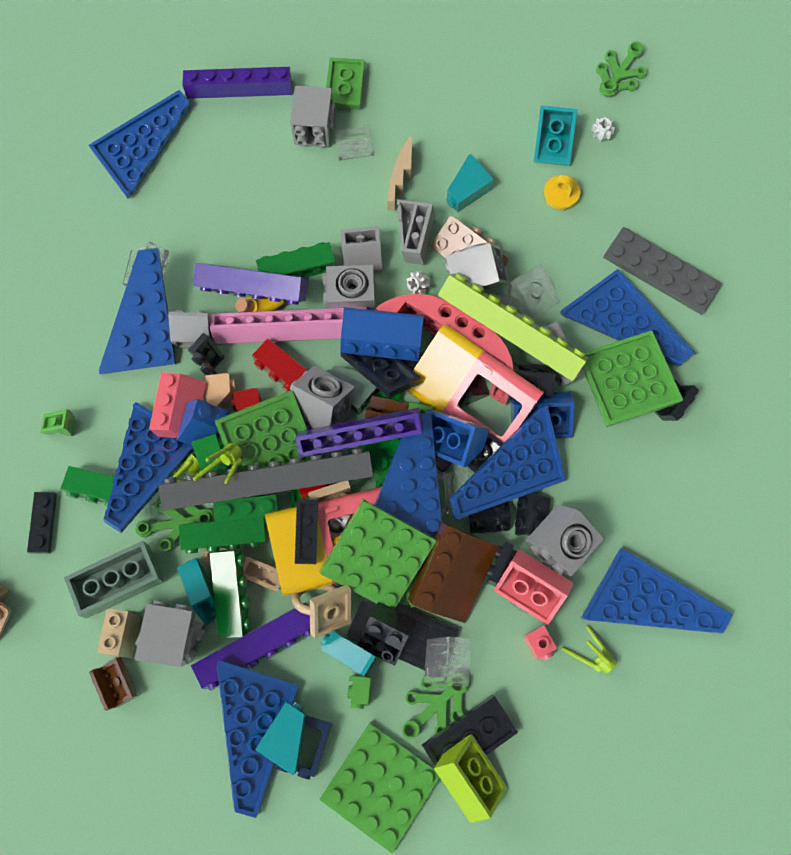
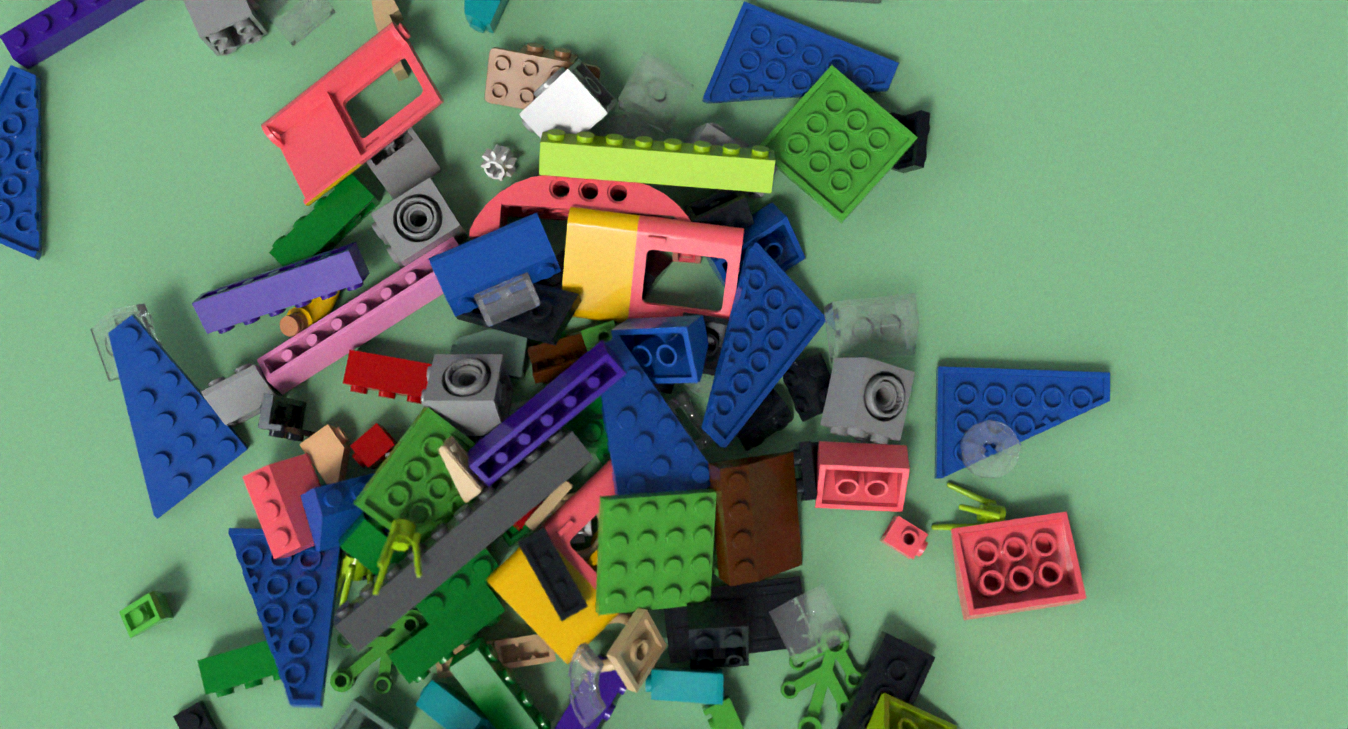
camera: 30 degrees left, 10 degrees up
(282, 621) = (584, 682): none -> clear tile
(288, 443) = (456, 461): none -> tan slope
(325, 208) = (317, 128): none -> coral piece
(376, 357) = (507, 299): none -> clear slope
(416, 226) = (457, 85): light grey wedge -> none
(594, 498) = (872, 327): none -> clear slope
(604, 704) = (1016, 566): none -> coral slope
(632, 607) = (1007, 449): none -> clear plate

